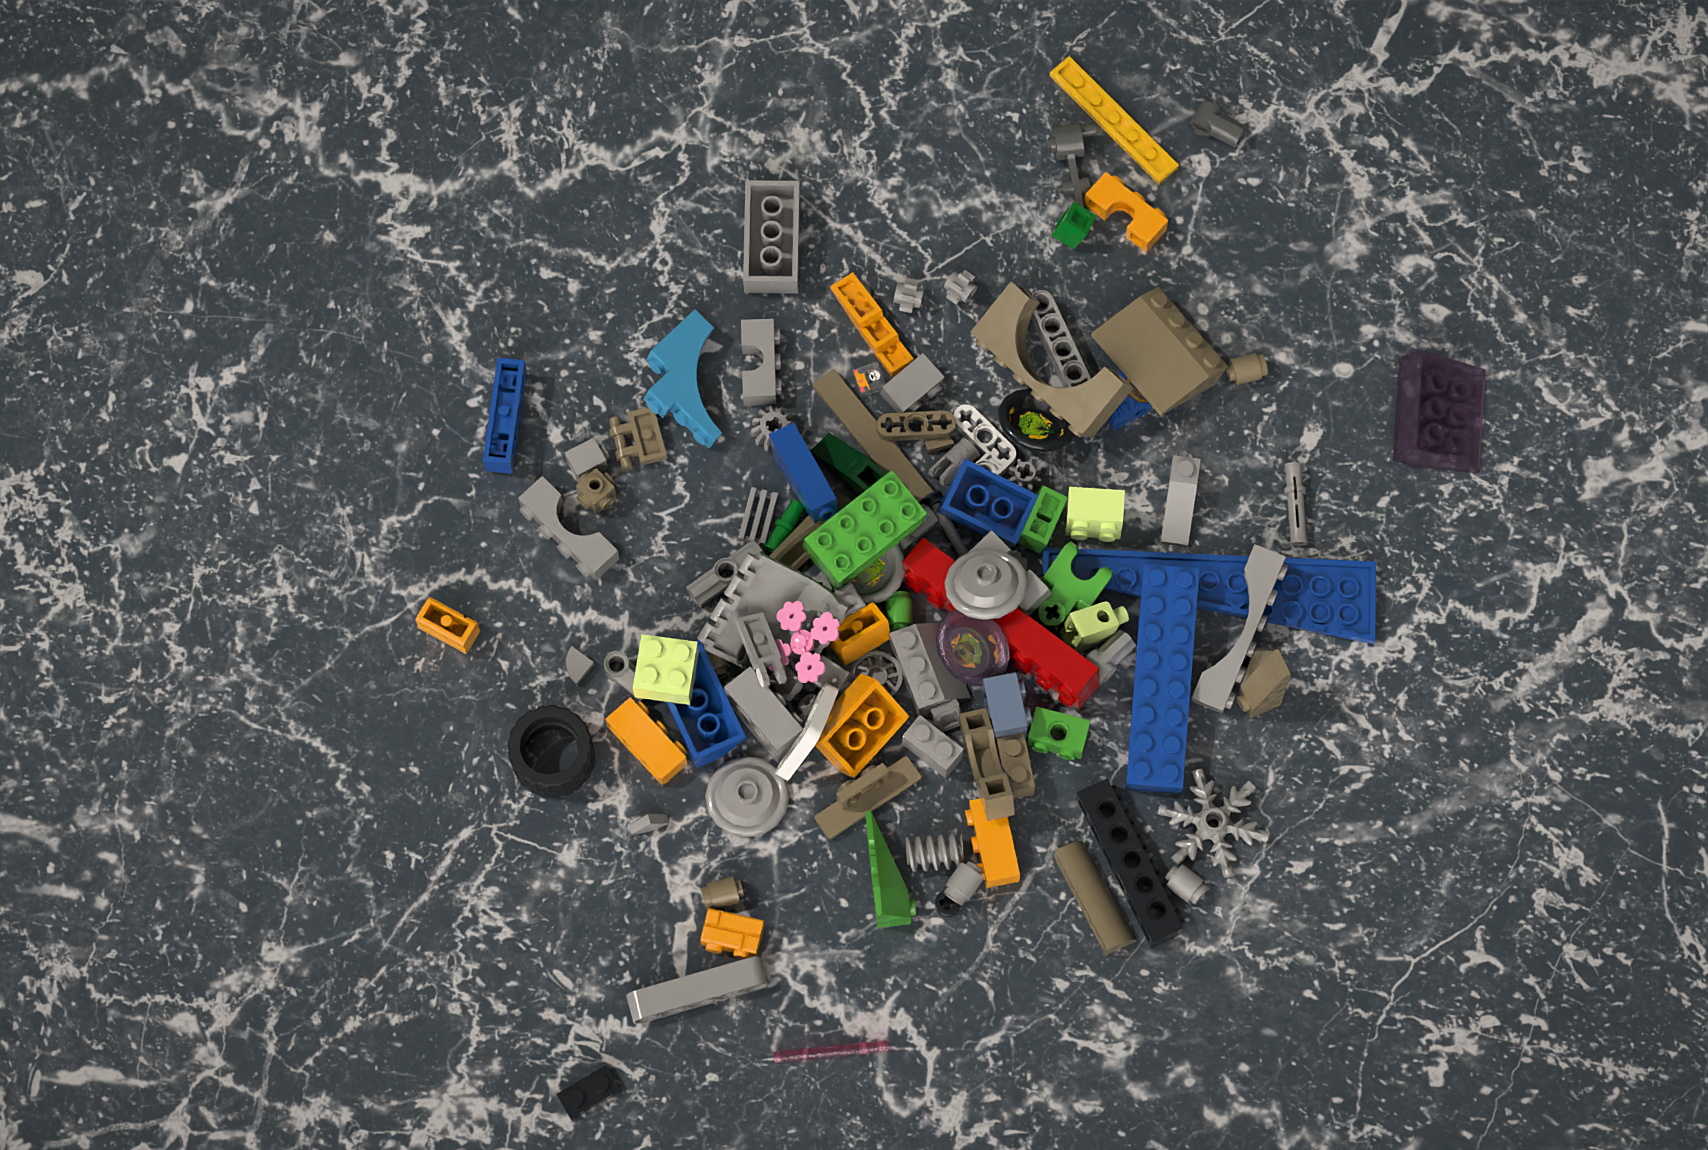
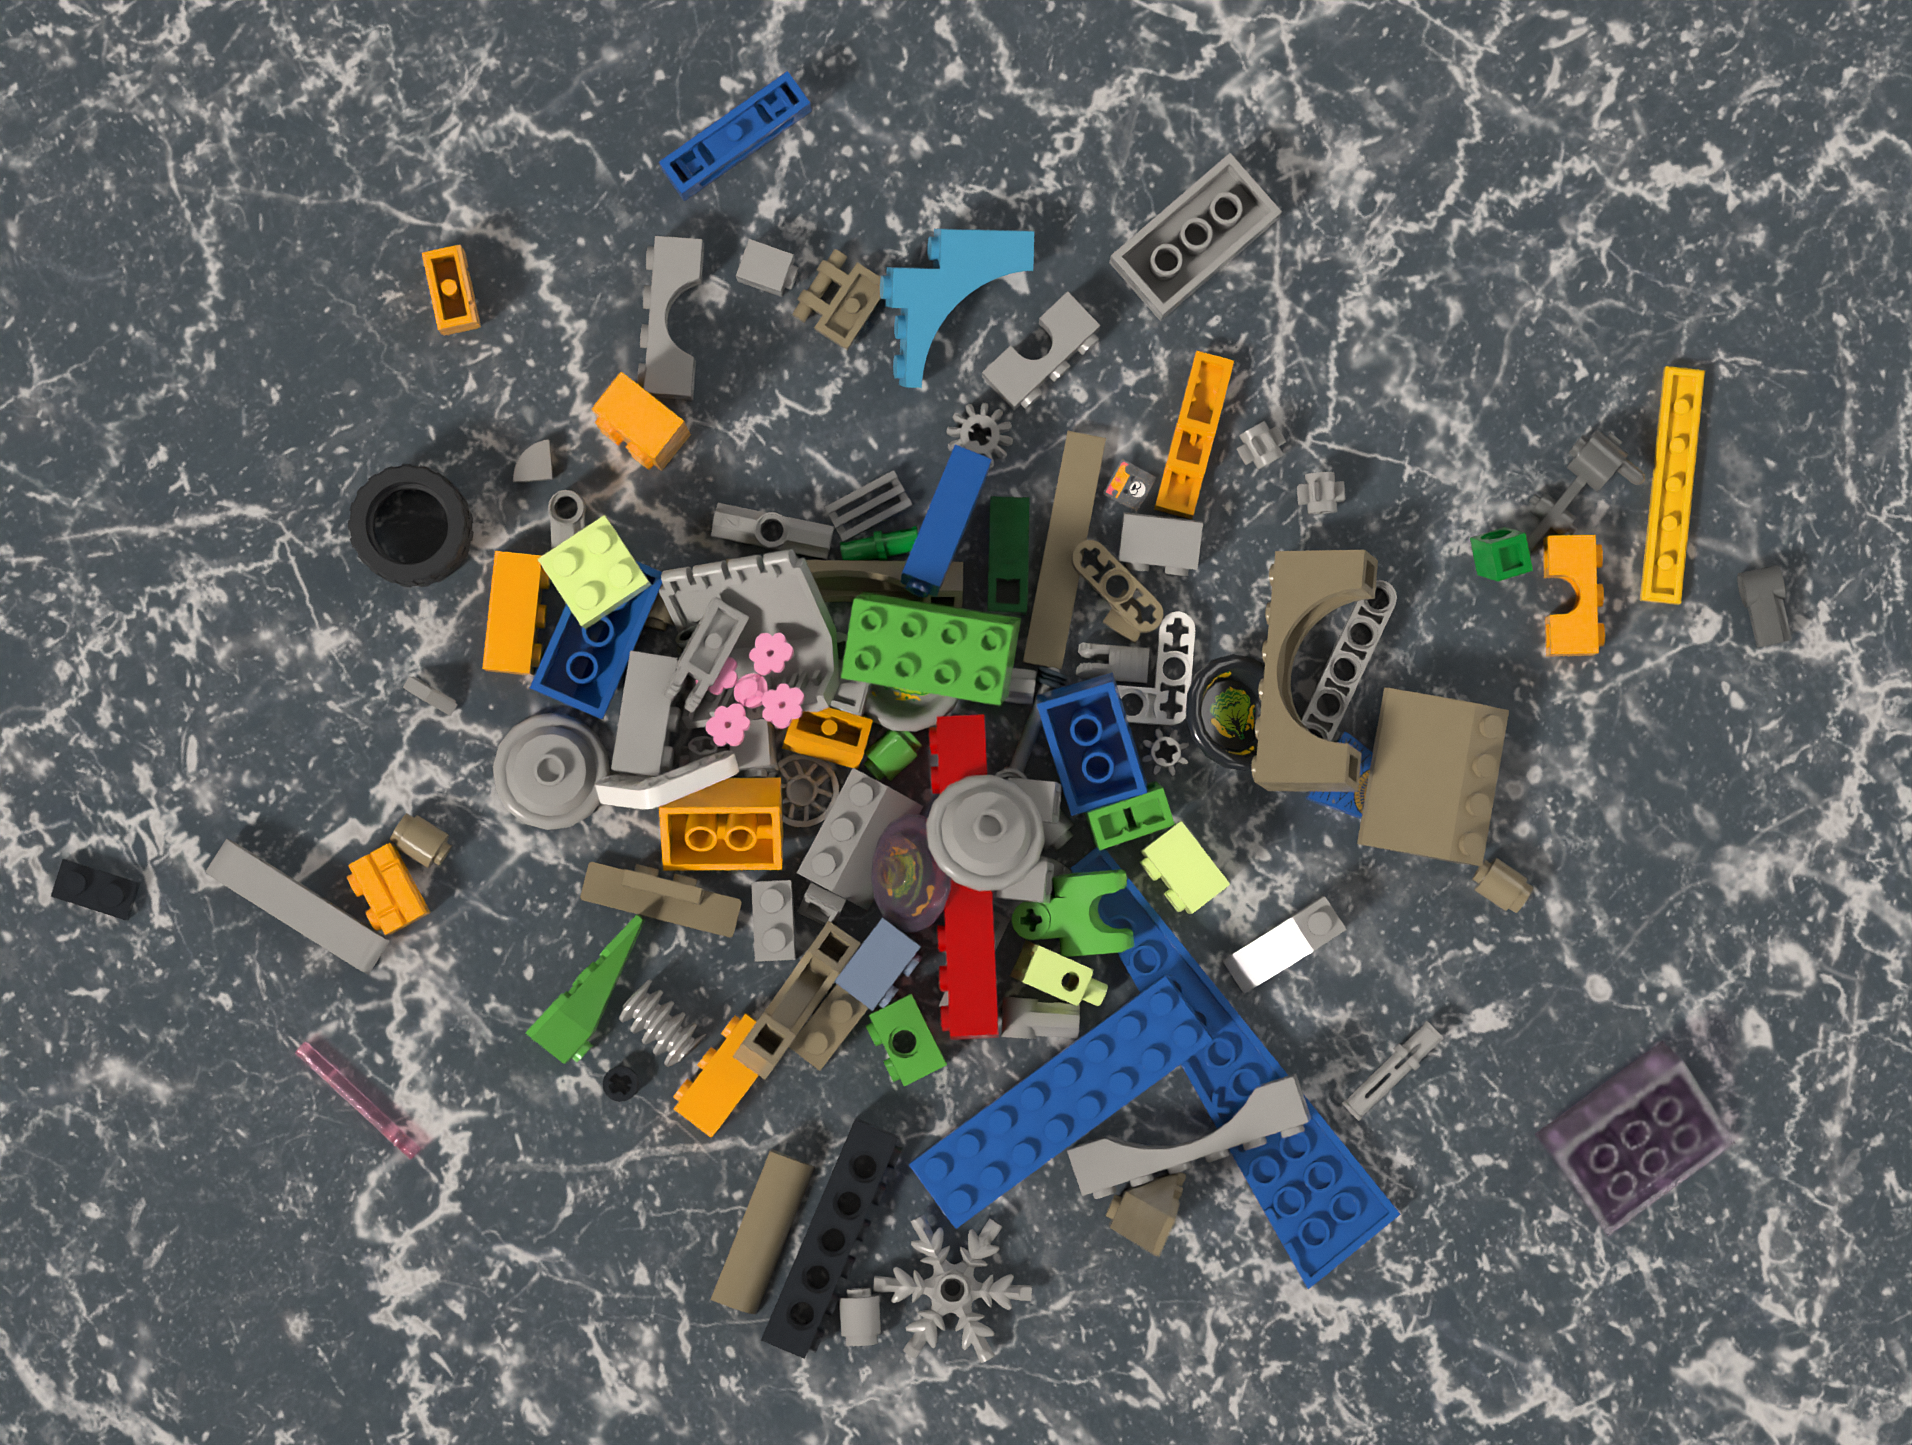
camera: 45 degrees right, 15 degrees up
(596, 499) = (739, 325): dark tan brick -> none
(609, 583) = (641, 421): none -> light orange brick
(963, 882) = (650, 1086): light grey brick -> none

